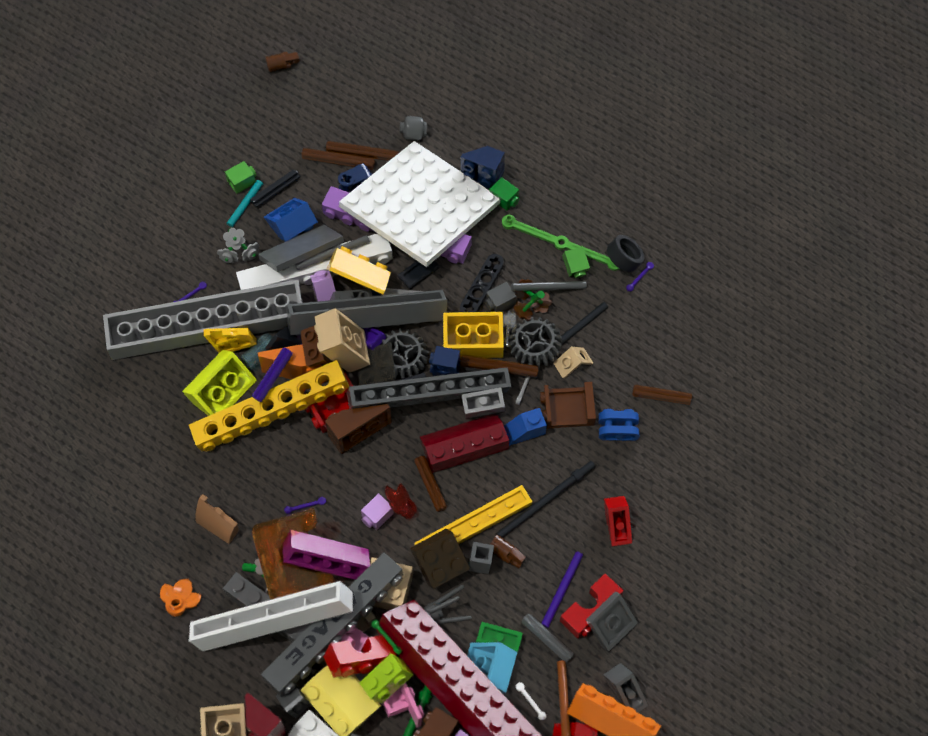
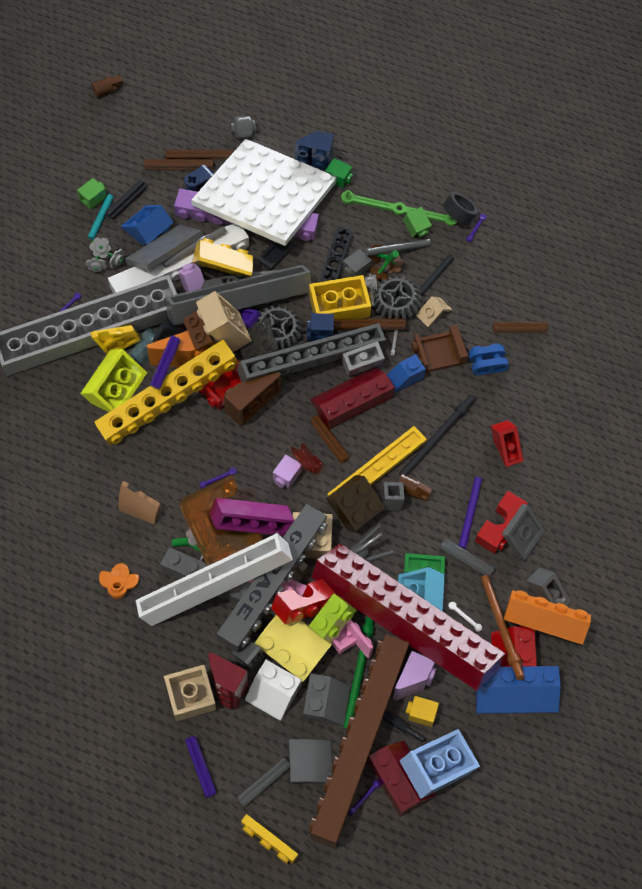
camera: 15 degrees left, 0 degrees up
(375, 624) = (311, 571): green hinge -> none

